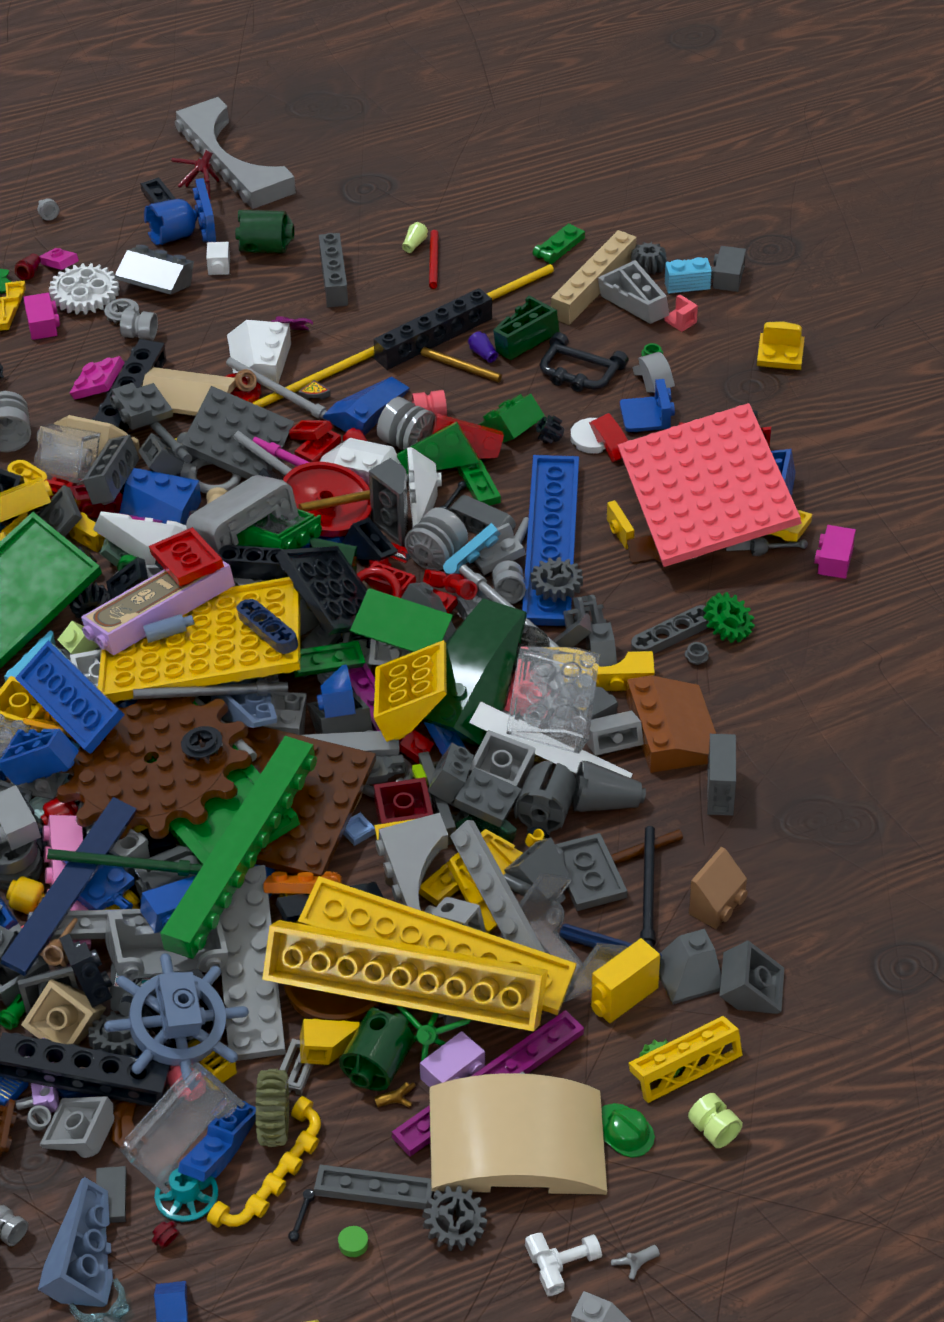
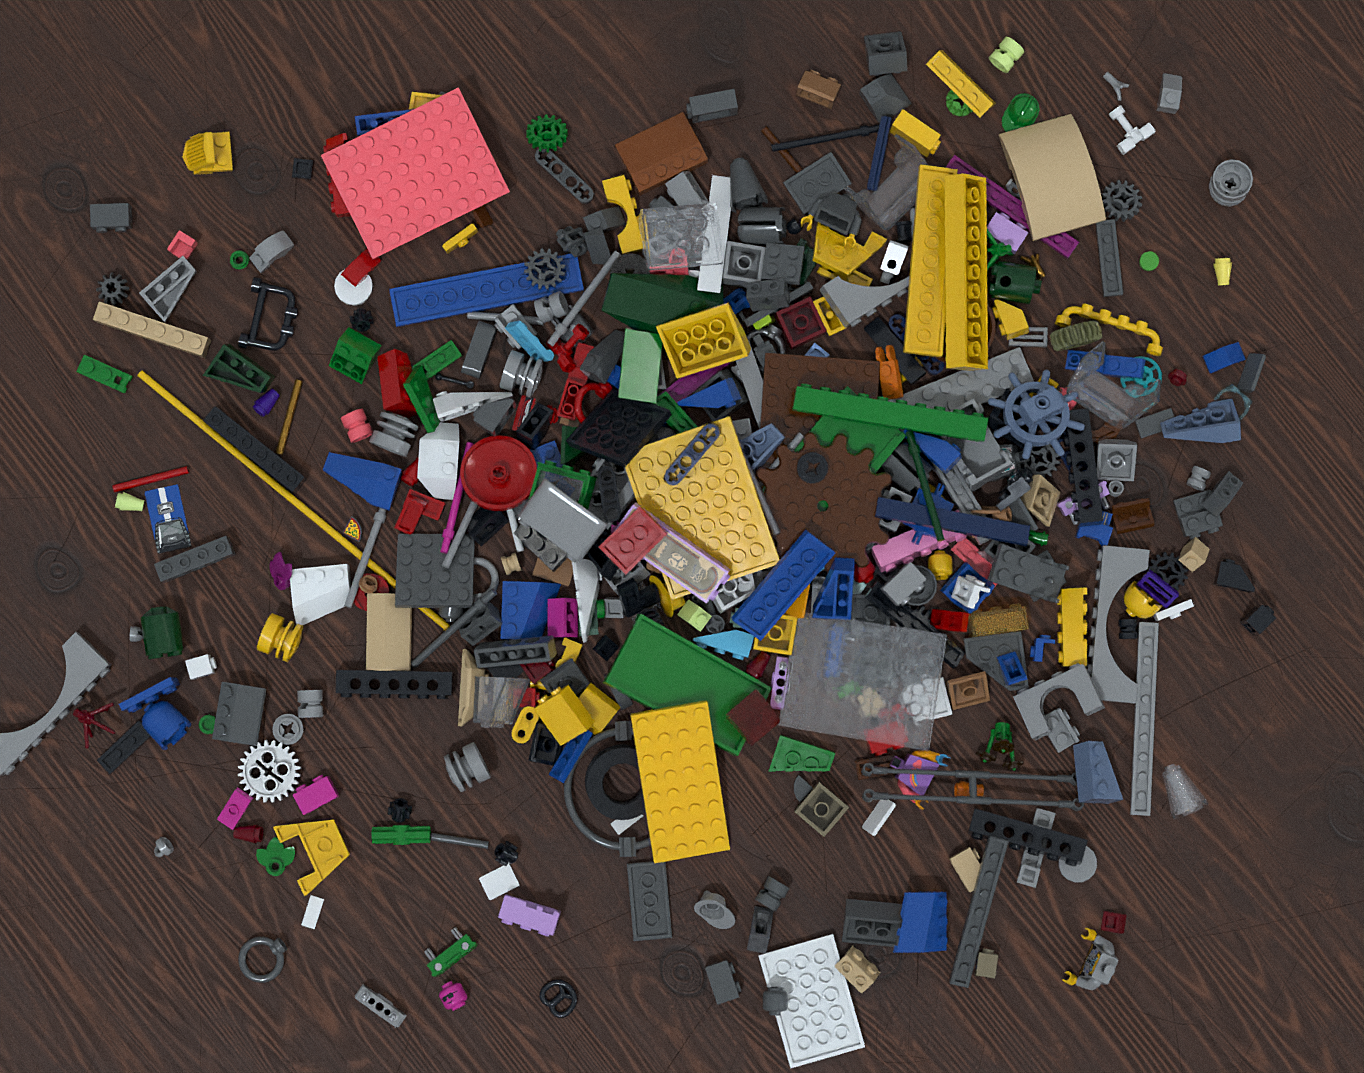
camera: 105 degrees left, 40 degrees up
(97, 377) = (387, 714): dark pink plate -> none
(140, 405) = (424, 659): dark grey plate -> none
(167, 627) = (701, 533): sand blue cylinder -> none
(219, 308) = (279, 637): none -> yellow wheel
(308, 1196) = (1154, 299): black hinge -> none
(334, 501) = (501, 458): pearl gold bar -> none
(387, 266) = (167, 519): none -> sticker
(493, 886) = (869, 234): light grey plate -> none
(648, 412) = (317, 247): blue bracket -> none
(687, 275) = (132, 249): medium azure brick -> none
(697, 653) = (584, 147): dark grey plate -> none
(836, 551) = (450, 66): dark pink brick -> none

